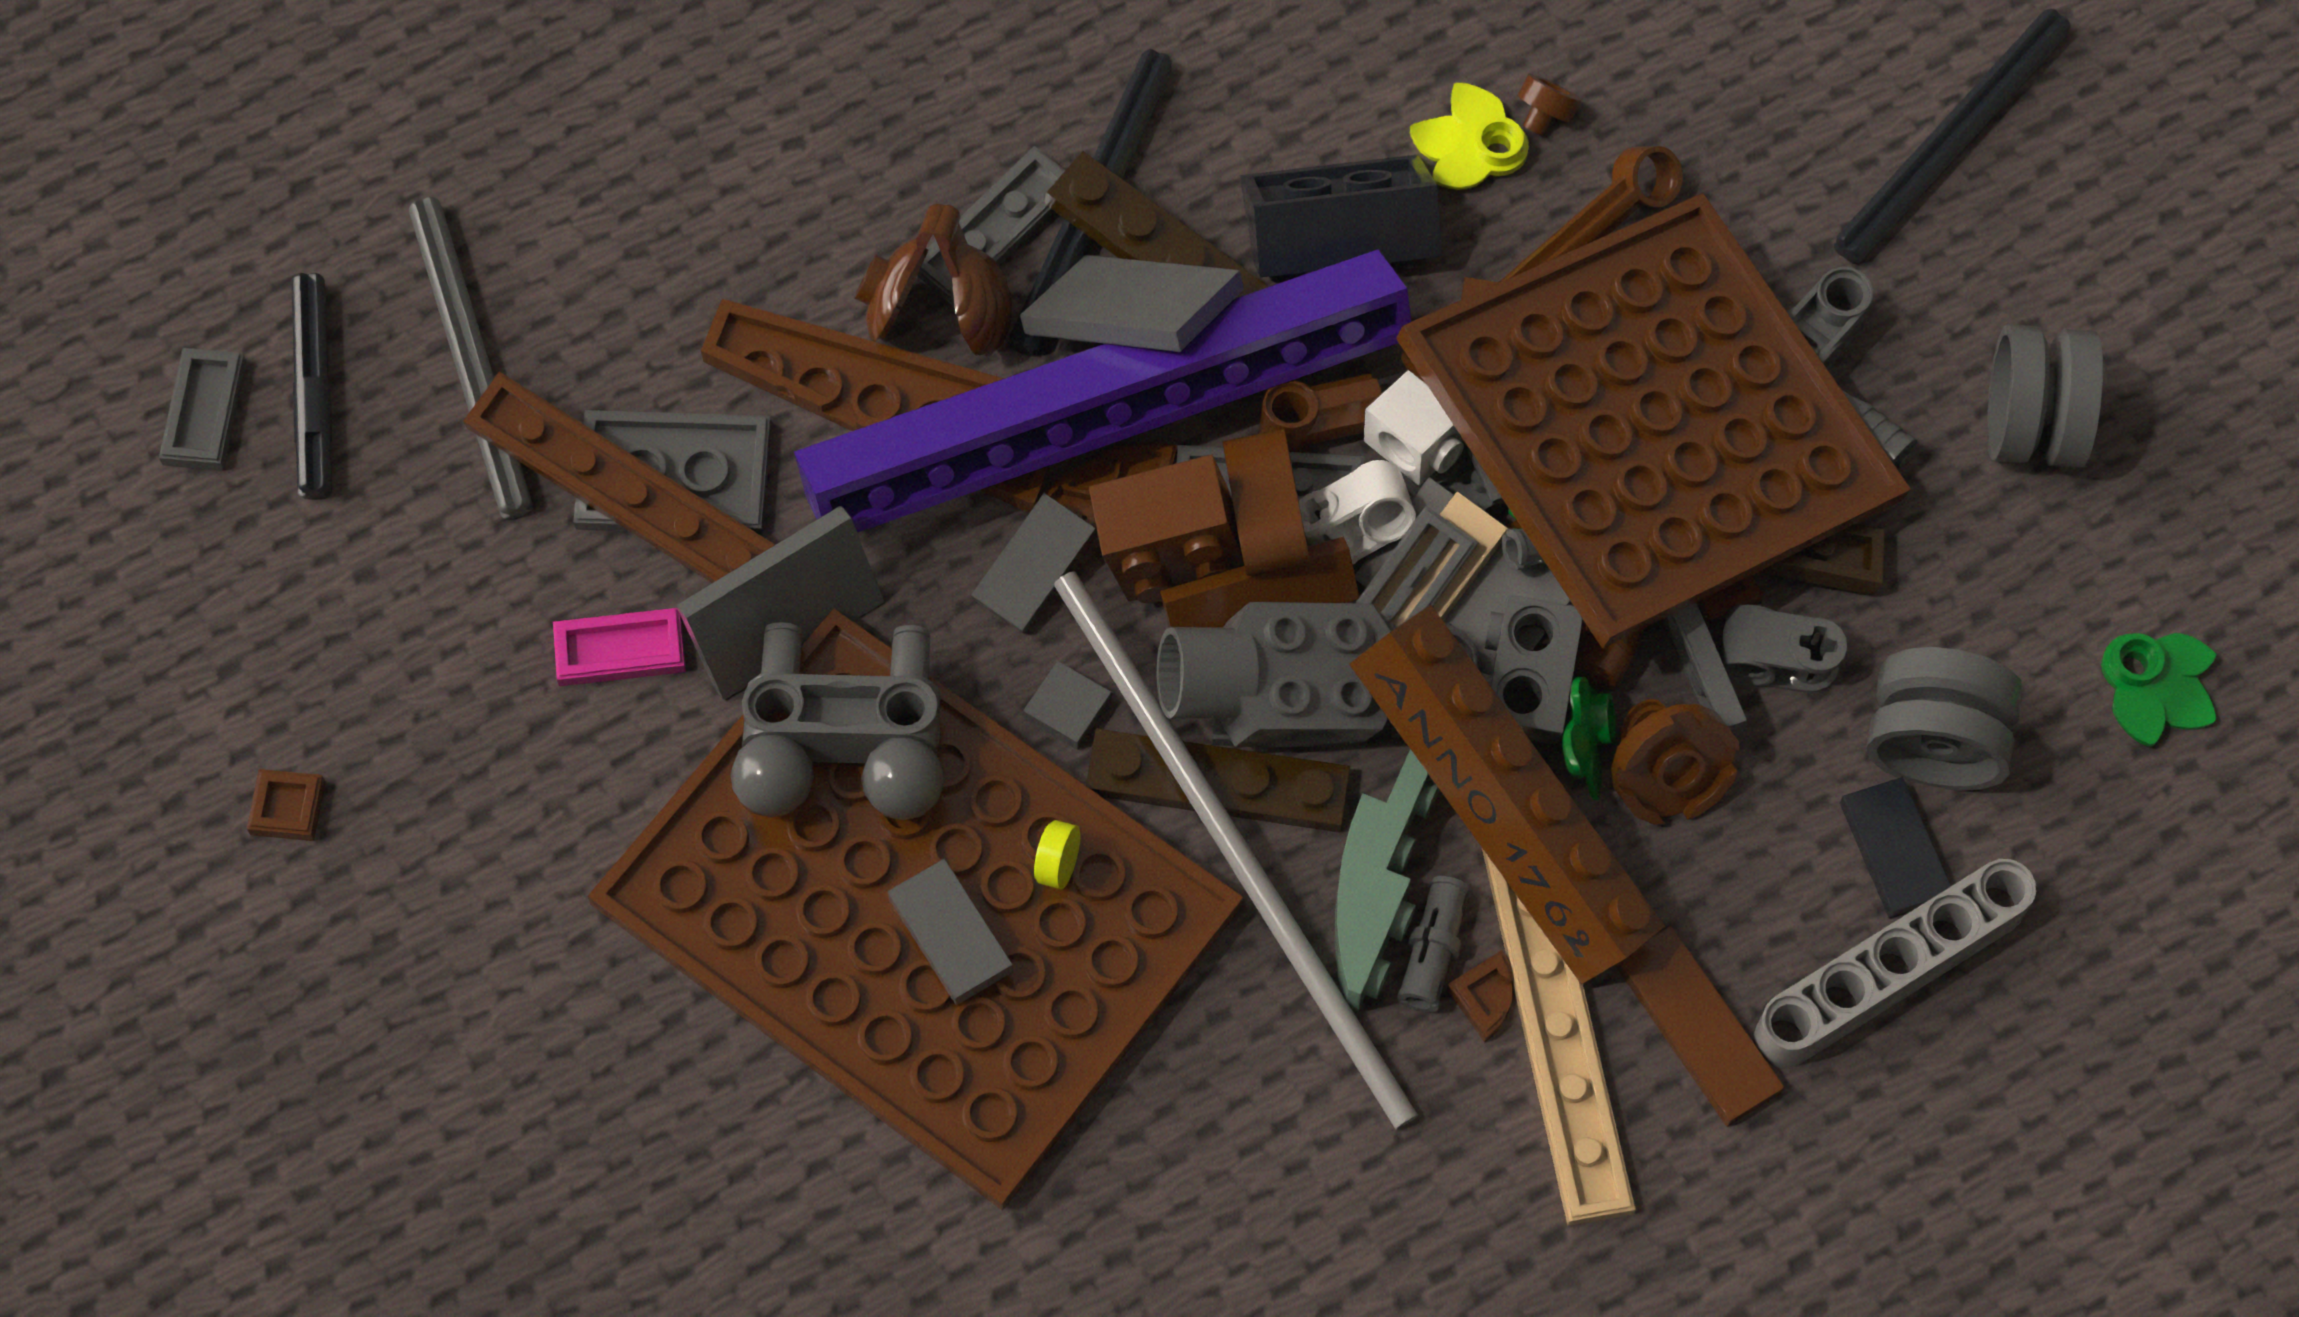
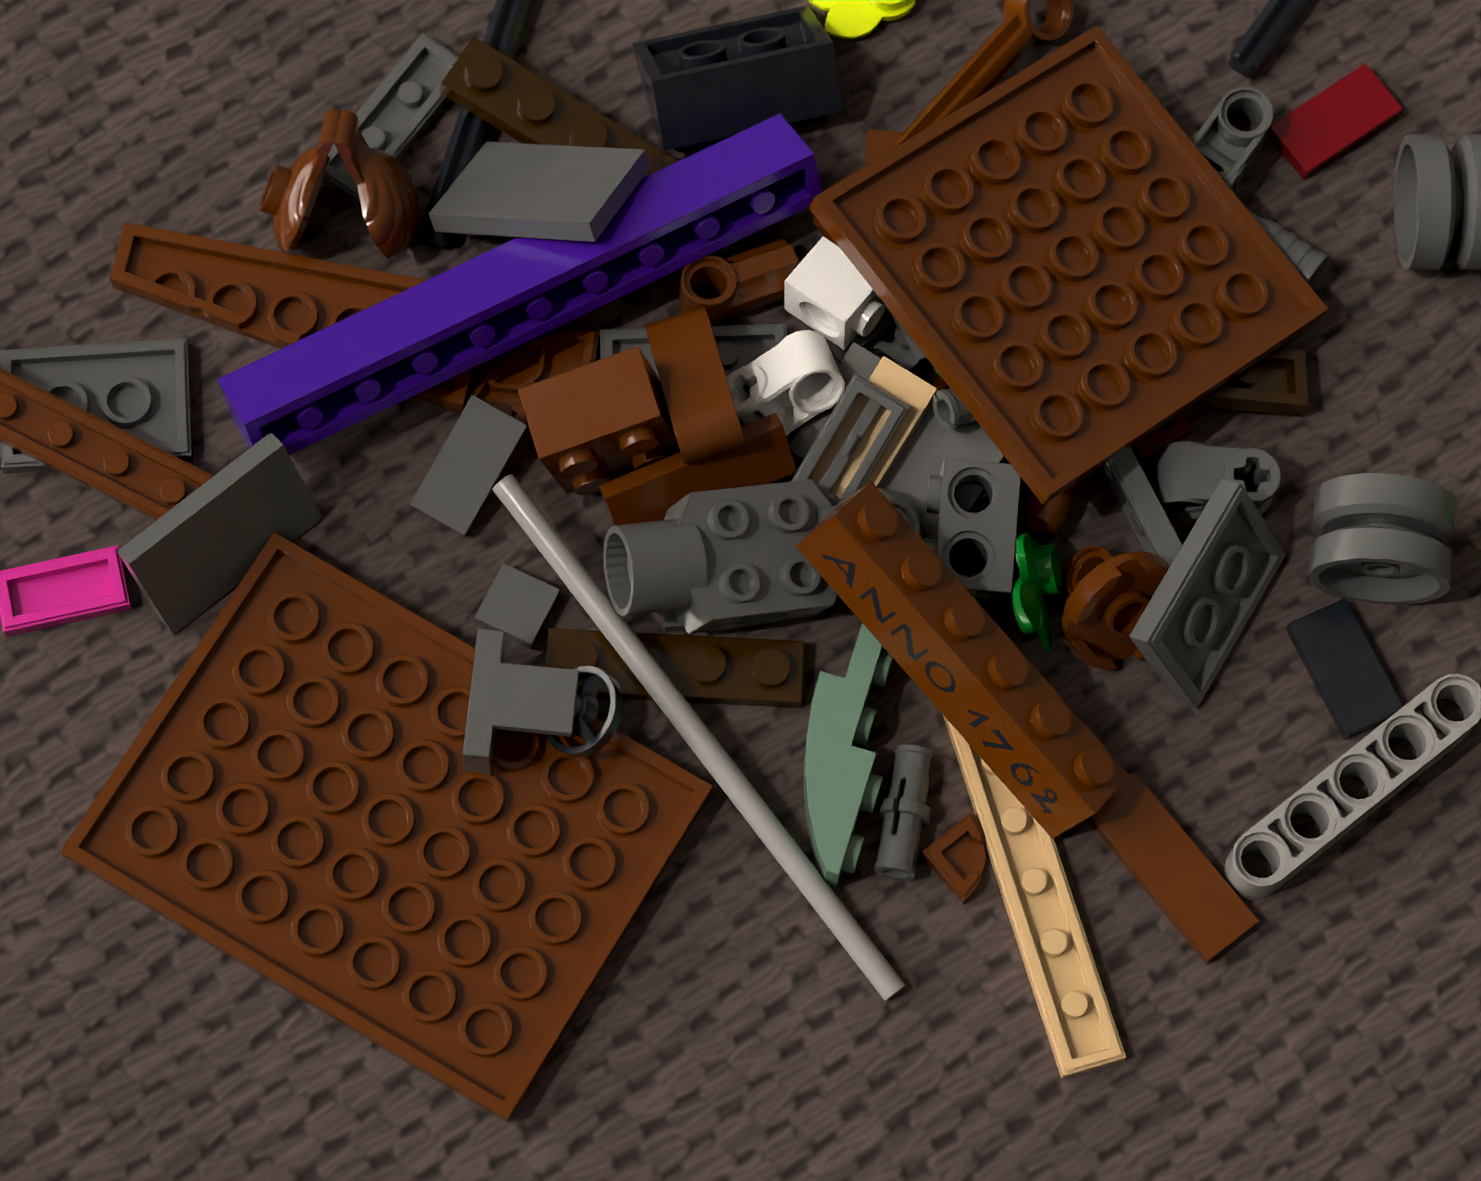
camera: 10 degrees left, 5 degrees up
(840, 723) = (292, 652): dark grey piece -> none
(950, 931) = (427, 851): dark grey tile -> none
(1057, 854) = (524, 764): neon yellow tile -> none
(1072, 793) = (533, 702): none -> dark grey piece
(1762, 756) = (1208, 593): none -> dark grey tile
(1935, 312) = (1334, 121): none -> dark red tile

